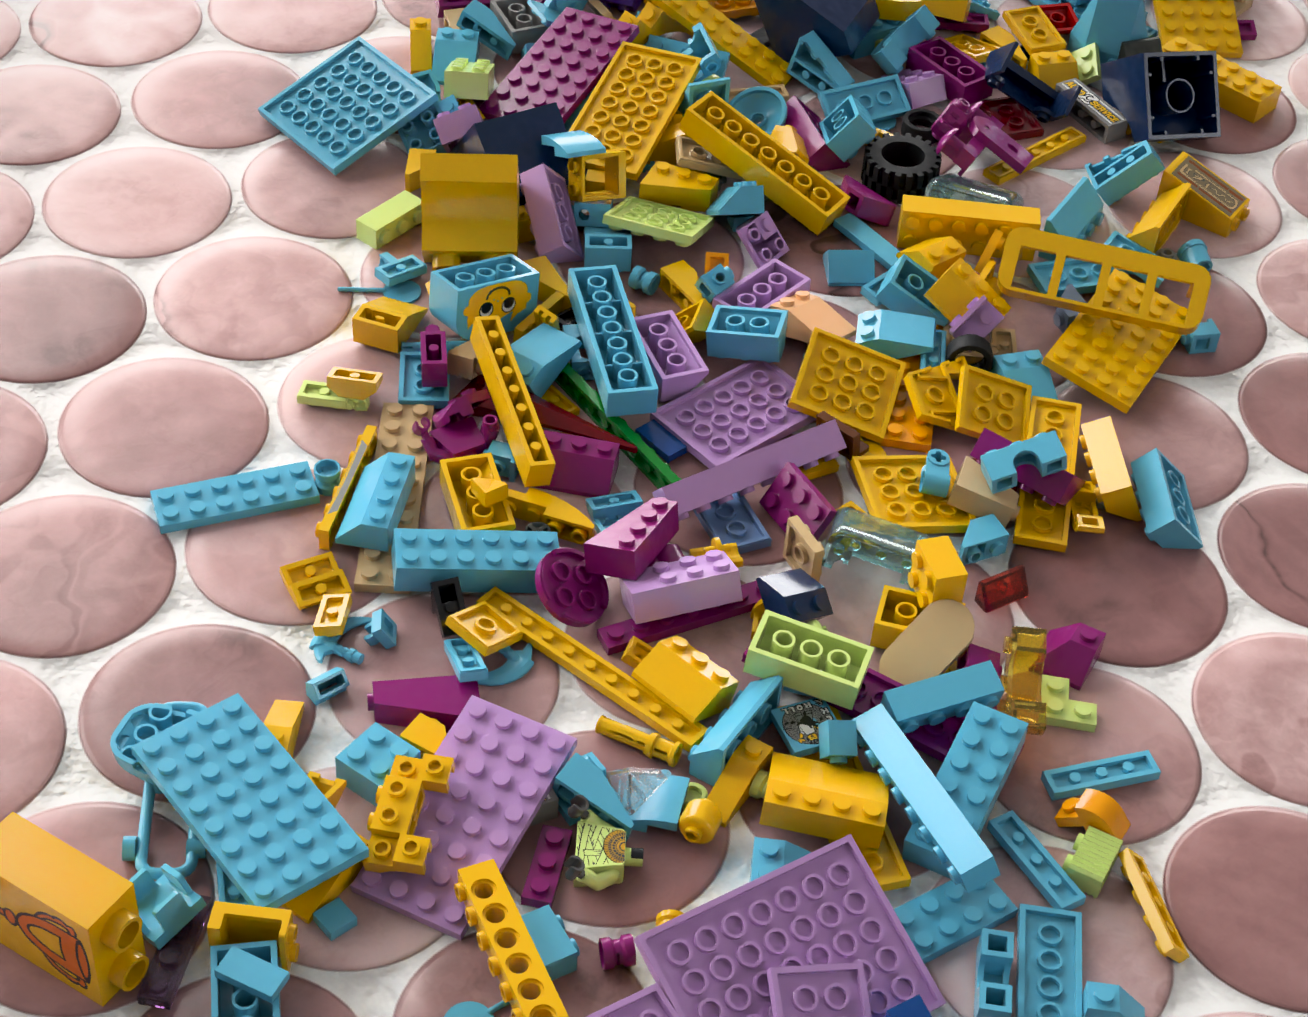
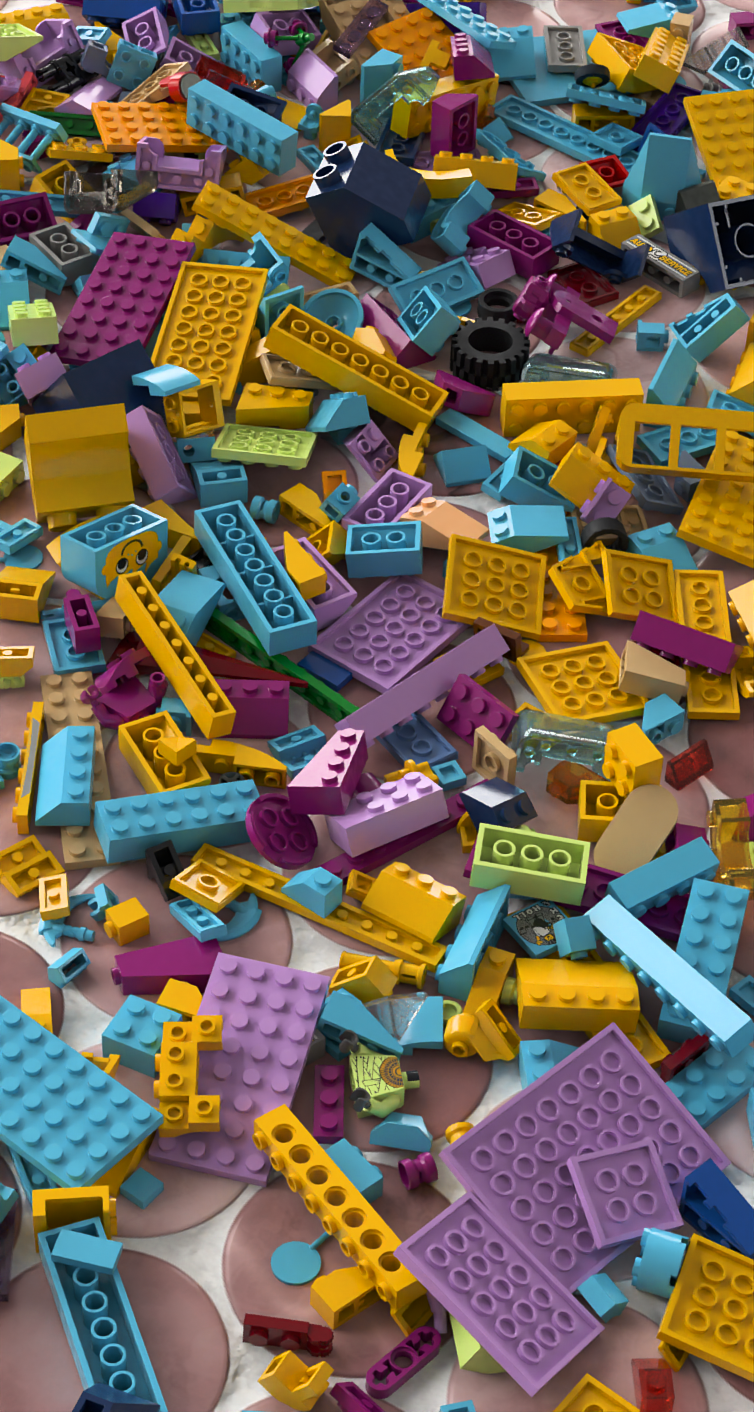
camera: 10 degrees left, 0 degrees up
(396, 650) = (127, 921): none -> yellow brick
(589, 651) = (315, 890): none -> medium azure slope
(612, 909) = (402, 1132): none -> medium azure slope
(616, 748) = (365, 980): none -> yellow slope
(659, 340) = (302, 569): none -> yellow slope
(730, 825) = (493, 1034): none -> yellow slope
(756, 560) = (449, 775): none -> medium azure plate
(801, 247) = (412, 451): none -> yellow slope
(870, 581) = (565, 779): none -> clear orange slope
(926, 881) = (689, 1051): none -> dark red plate
(935, 474) = (602, 663): medium azure piece -> none
(1028, 317) = (649, 490): none -> sand blue plate
(1041, 451) = (701, 625): medium azure arch -> none
(1065, 174) = (651, 336): none -> medium azure brick

